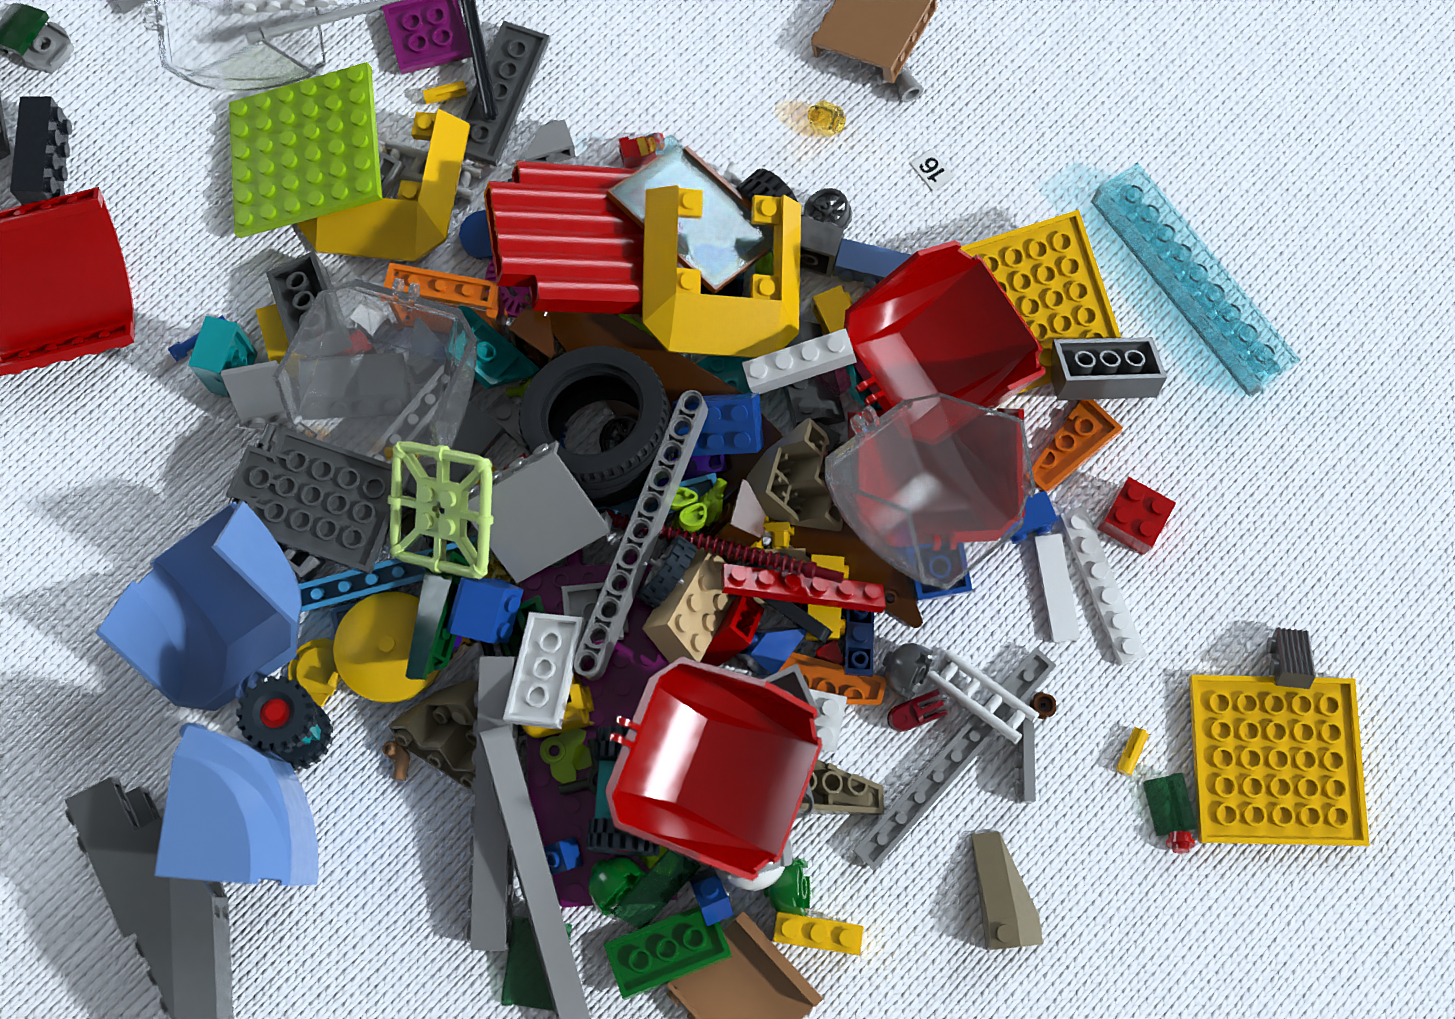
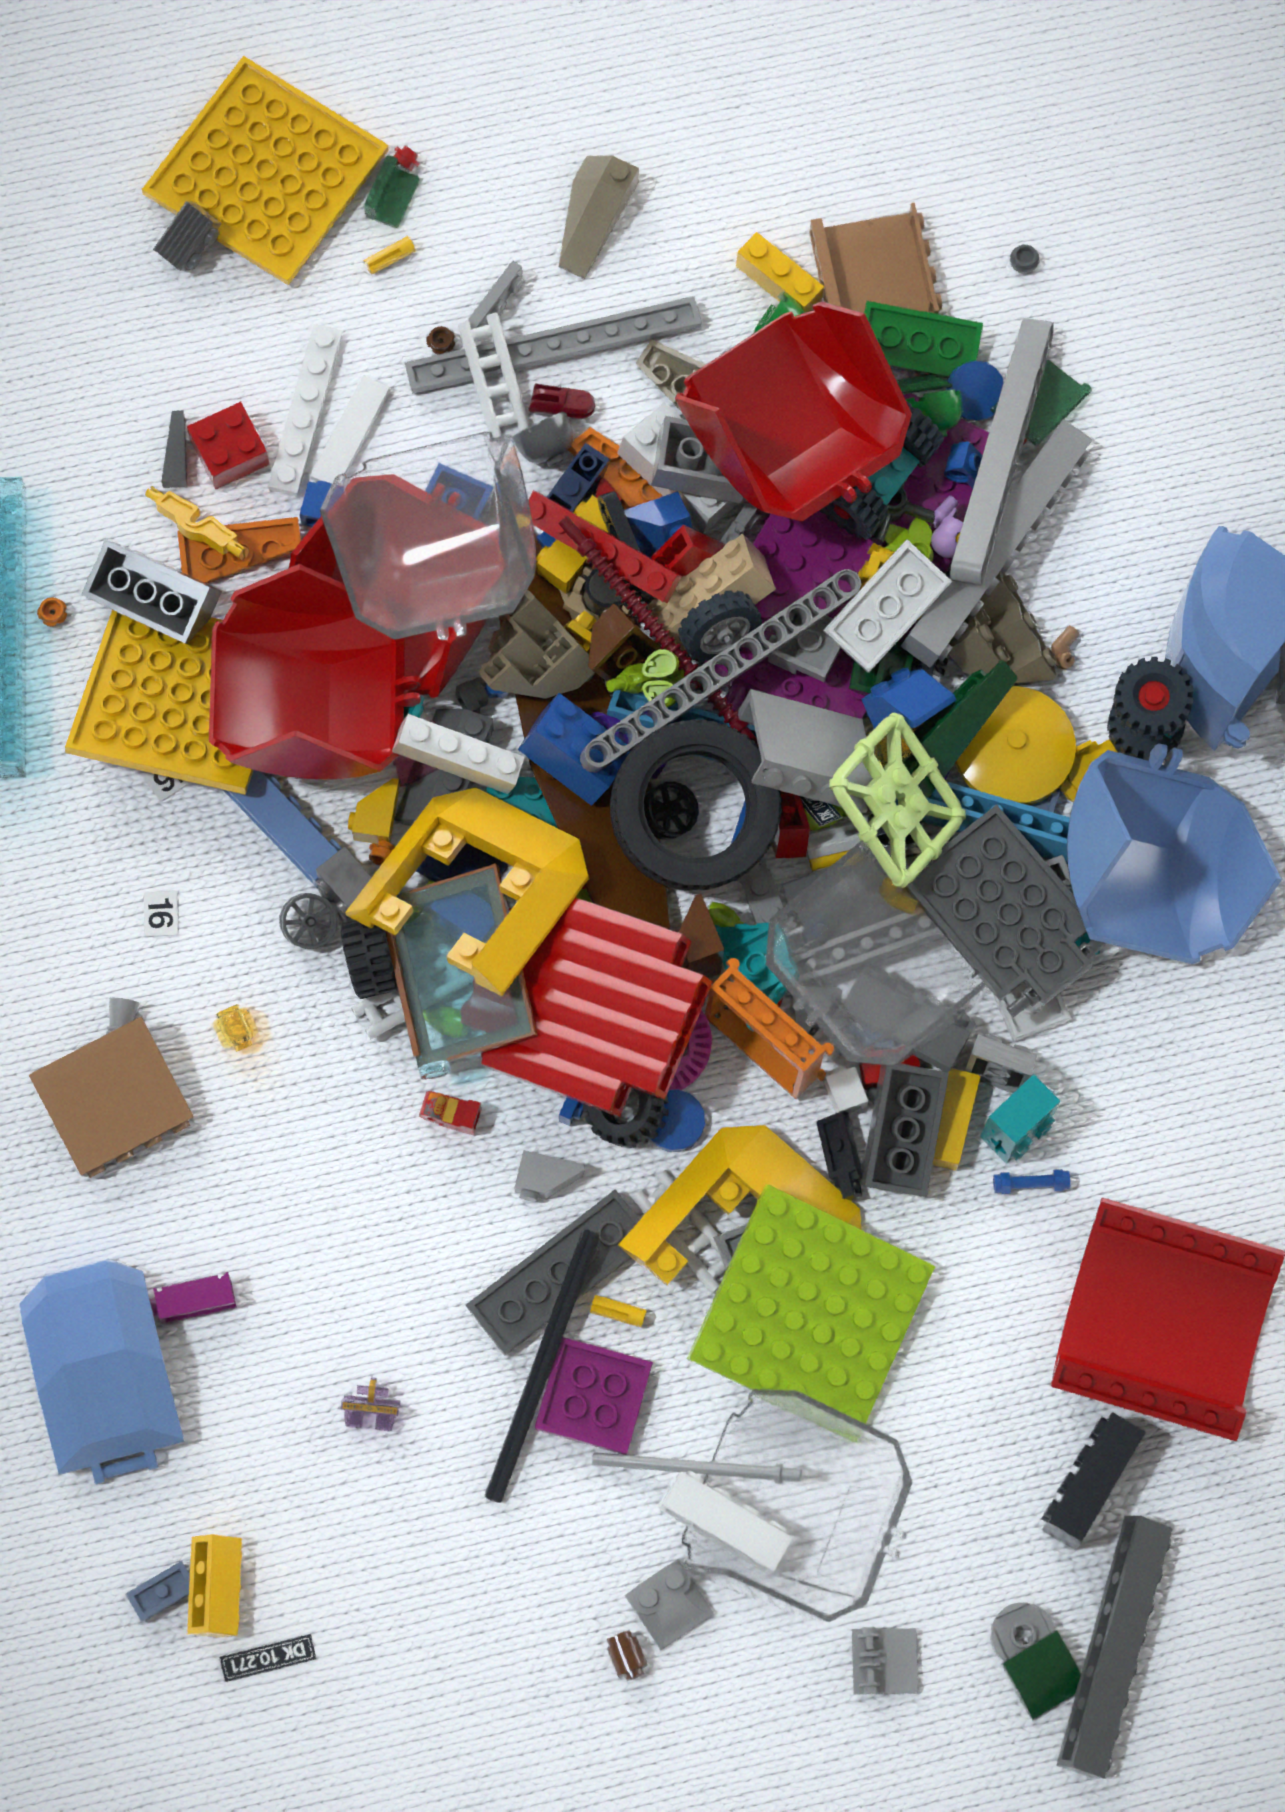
camera: 145 degrees left, 0 degrees up
(341, 267) = (841, 1154): none -> black hinge
(538, 782) = (948, 528): none -> lavender piece
(595, 936) = (979, 388): none -> blue tile
(808, 291) = (380, 851): none -> orange plate
(1101, 437) = (207, 530): none -> yellow piece
(1163, 482) = (175, 461): none -> dark grey piece
(1166, 316) = (52, 604): none -> orange plate

